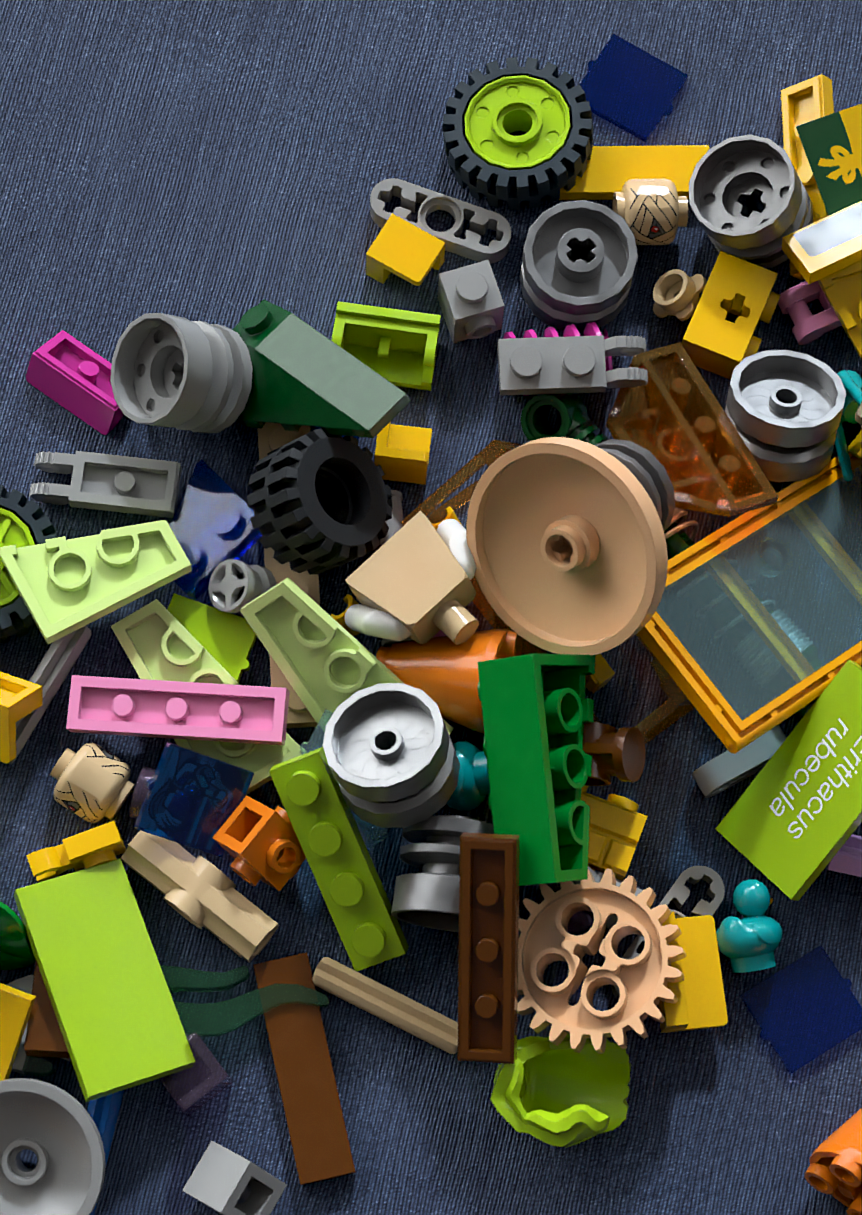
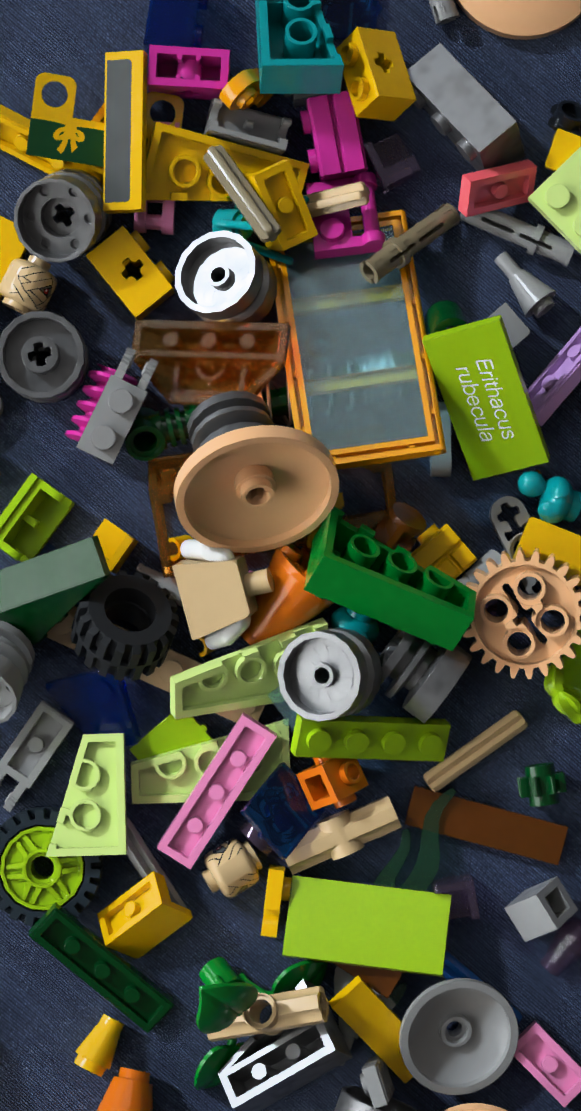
camera: 55 degrees left, 15 degrees up
(237, 583) = (151, 705): light grey wheel -> none
(391, 1106) = (542, 784): none -> dark green gear
(471, 301) = (30, 444): light grey brick -> none
(488, 947) = (485, 678): reddish brown tile -> none
(677, 294) = (96, 298): tan plate -> none

